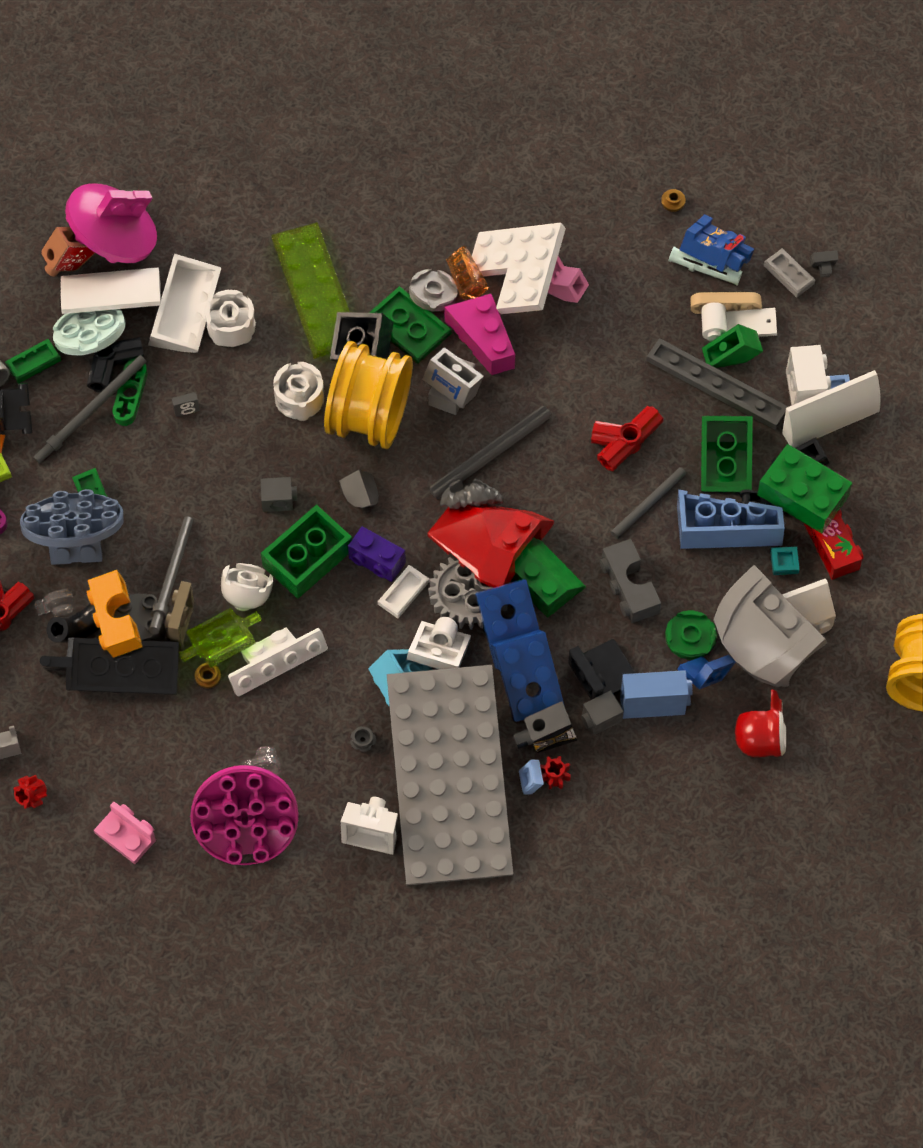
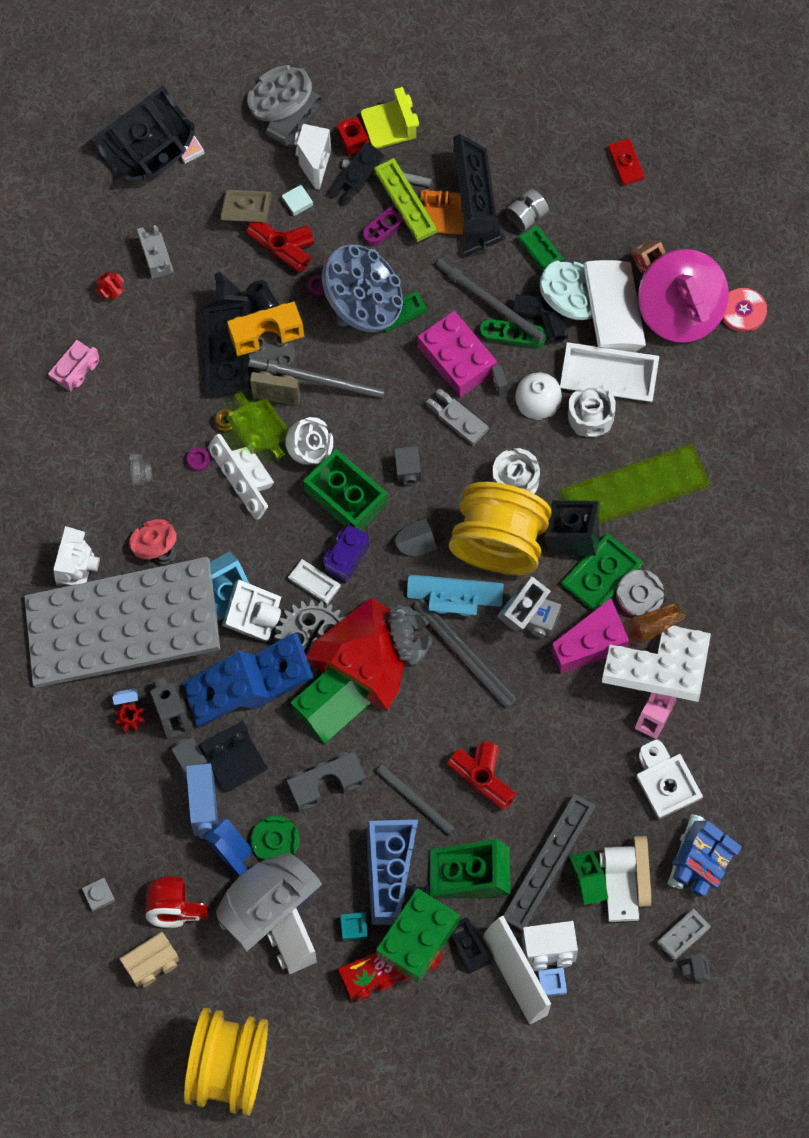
camera: 90 degrees right, 5 degrees up
(52, 579) = (315, 287): none -> magenta tile
(57, 602) = (292, 291): clear piece -> none
(125, 176) = (745, 310): none -> coral tile
(151, 442) = (456, 354): none -> dark pink piece
(205, 370) = (538, 396): none -> white cylinder
(223, 448) = (458, 418): none -> light grey hinge
(243, 814) = (82, 452): dark pink bracket -> none
(252, 705) = (198, 459): none -> magenta tile
(348, 747) = (153, 539): none -> coral tile
(428, 456) = (454, 594): none -> medium azure bracket
(622, 282) = (662, 769): none -> white plate
(670, 205) = (763, 827): pearl gold plate -> none
(751, 807) = (98, 894): none -> light grey plate
(824, 753) = (150, 960): none -> tan brick

